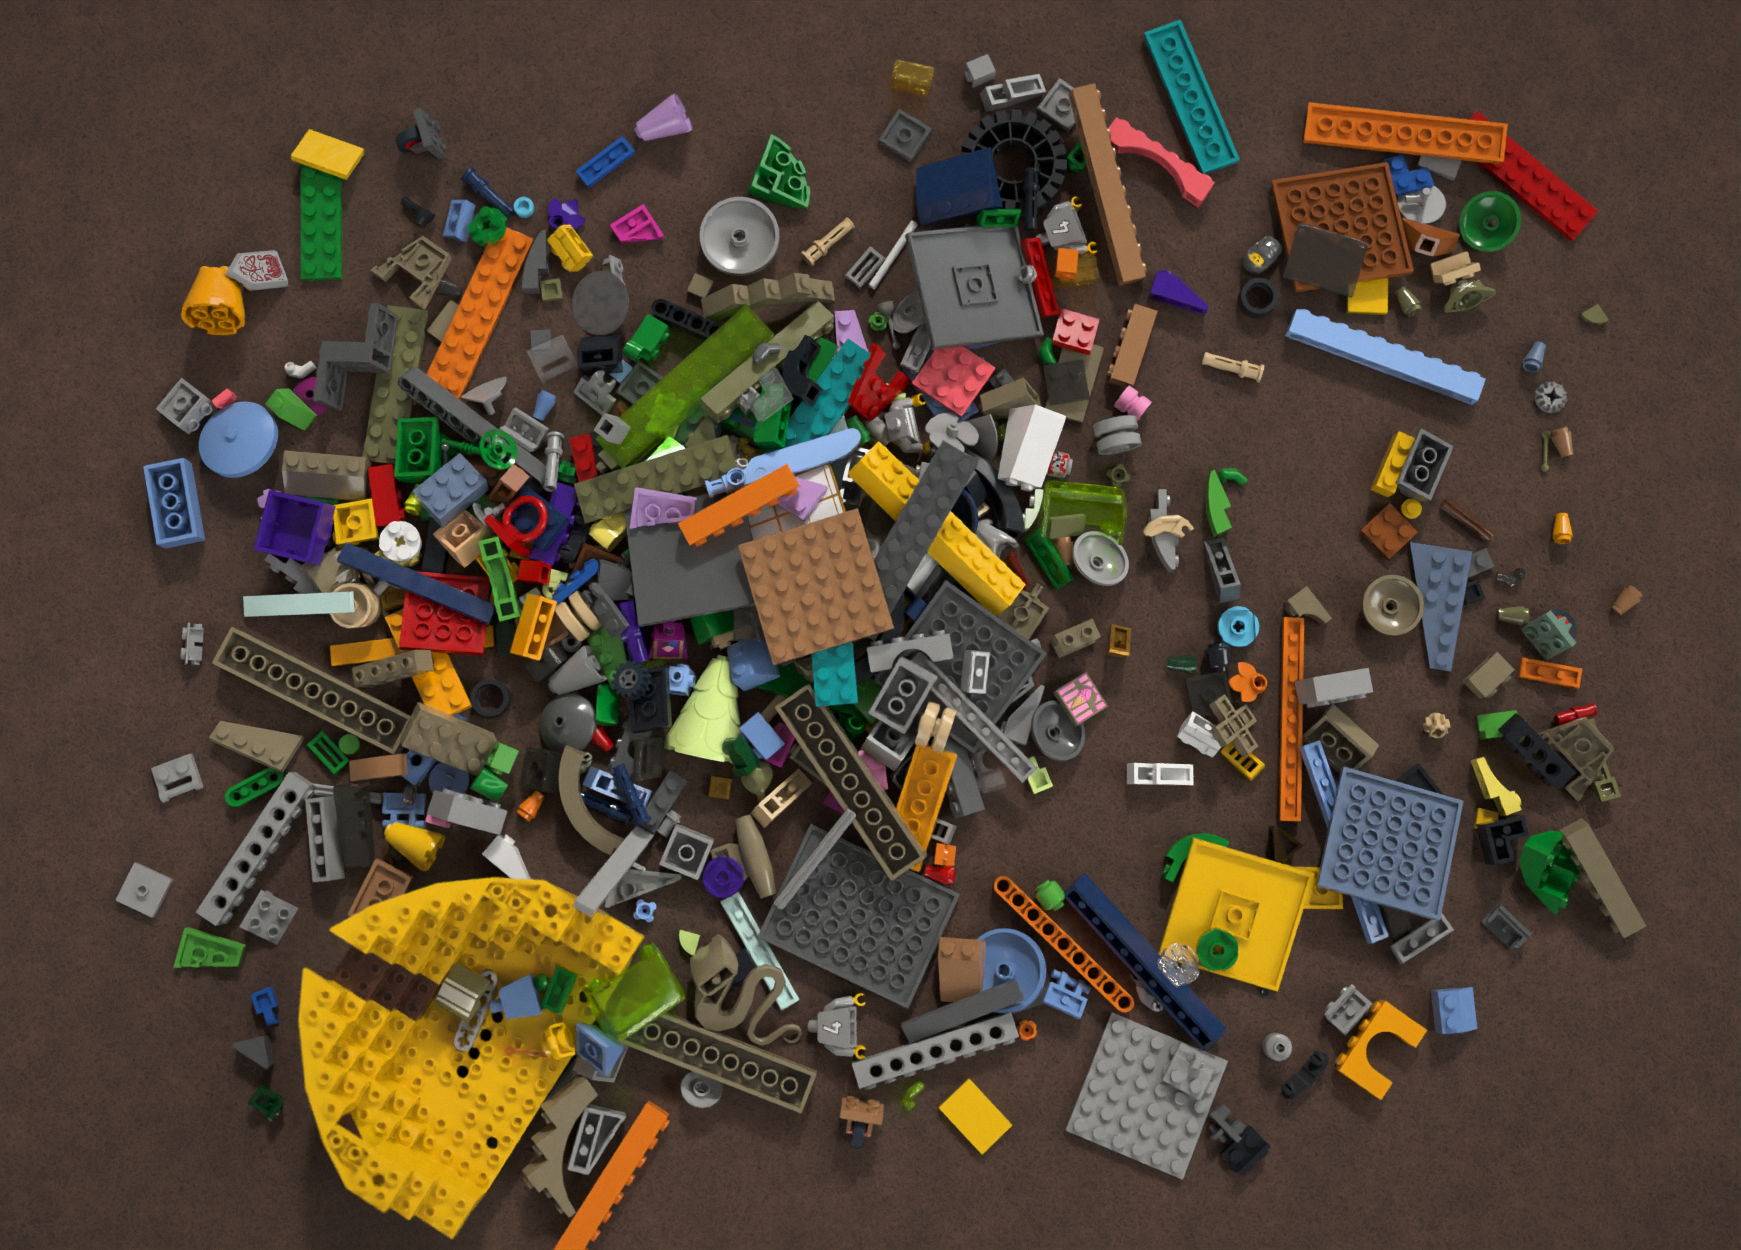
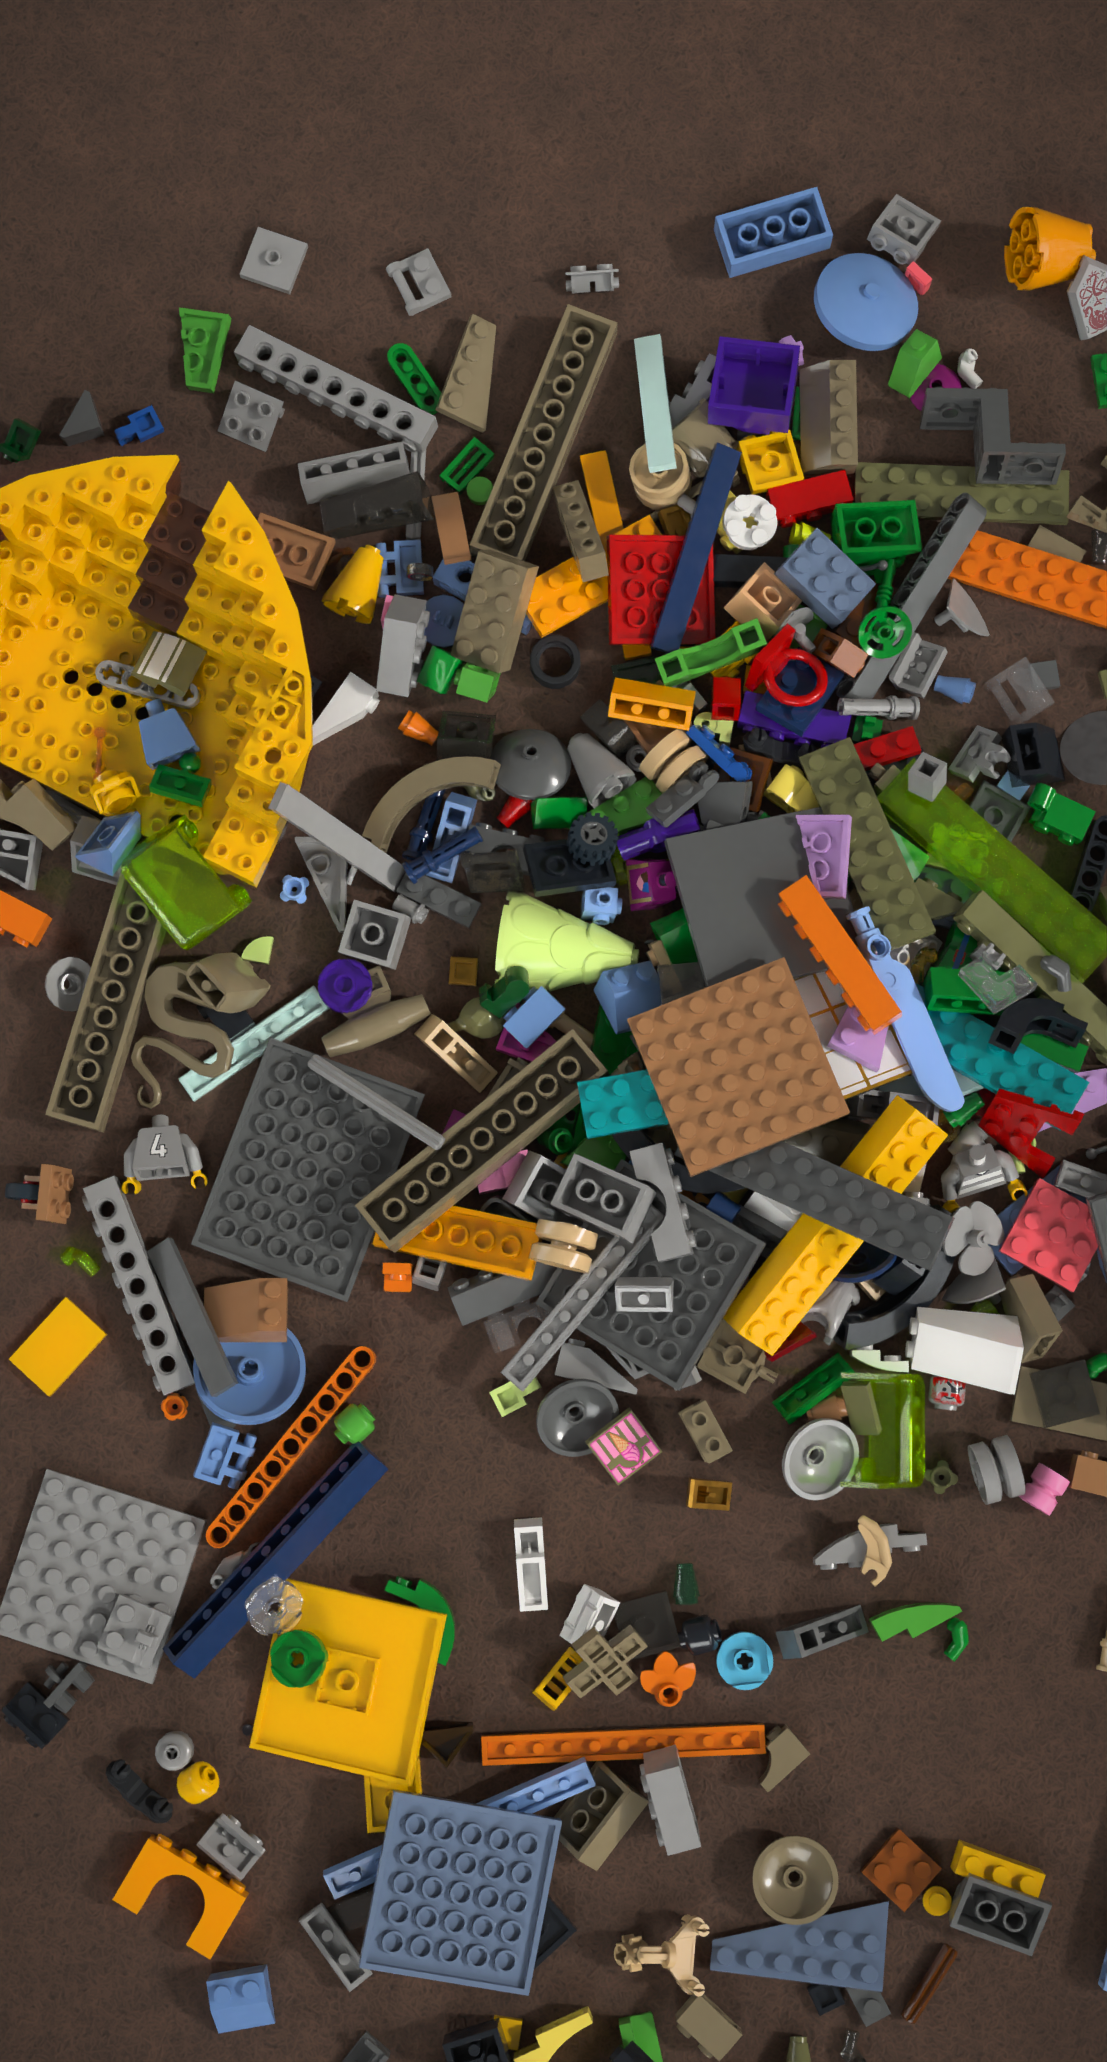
camera: 90 degrees right, 0 degrees up
(941, 874) = (371, 1277): red cone -> none
(1301, 1030) = (198, 1782): none -> yellow head
(1439, 691) = (678, 1954): none -> tan axle

